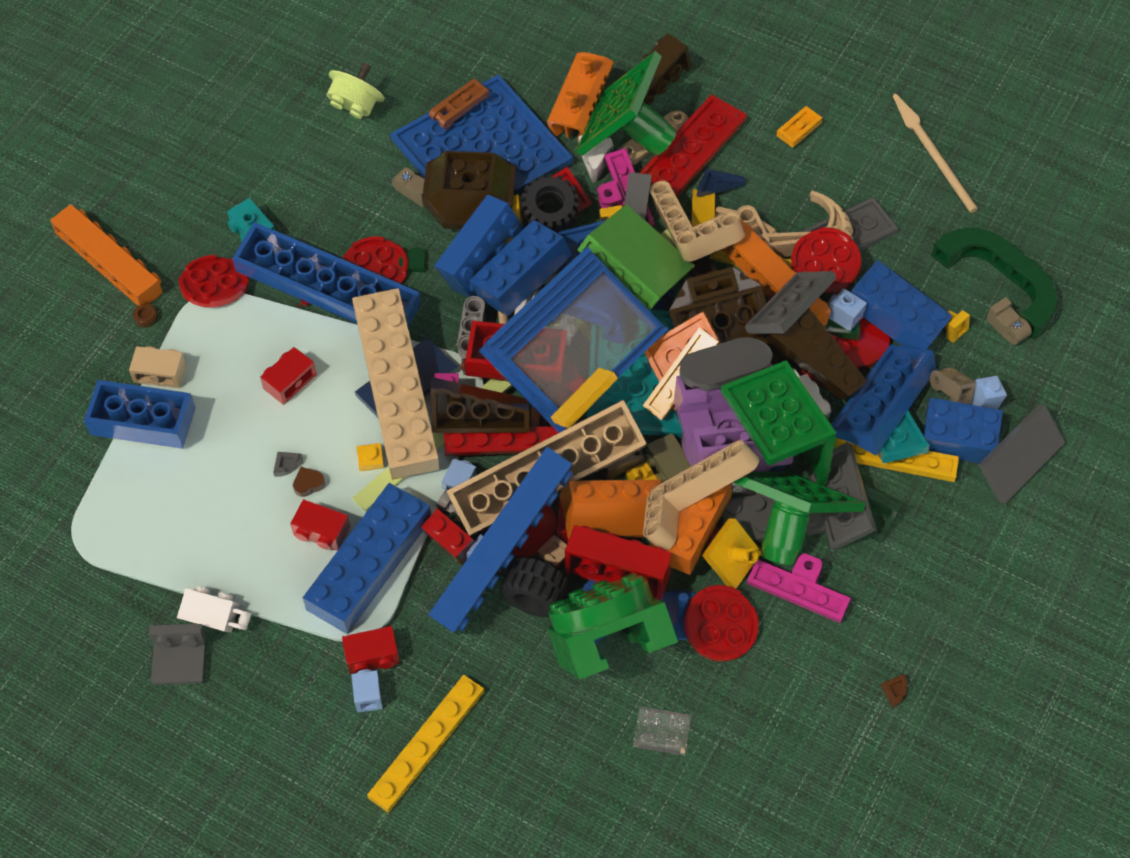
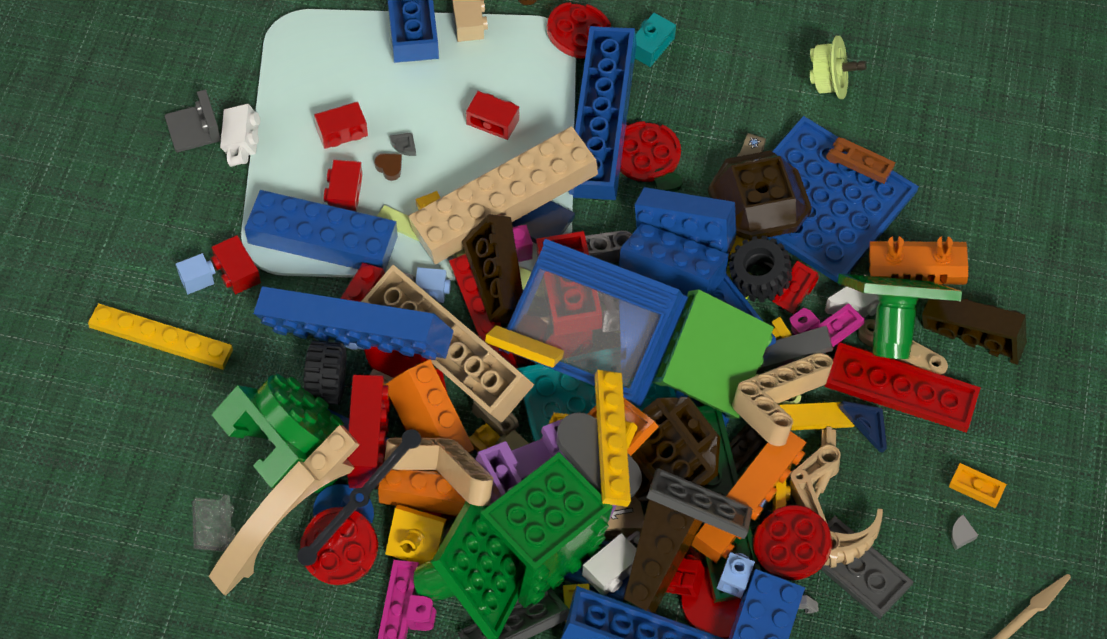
camera: 70 degrees right, 0 degrees up
(244, 511) = (341, 125): none -> red brick
(660, 511) = (410, 440): none -> black piece
(710, 697) = (320, 468): none -> tan slope
(713, 345) = (612, 438): none -> yellow plate
(837, 151) = (962, 533): none -> light grey tile

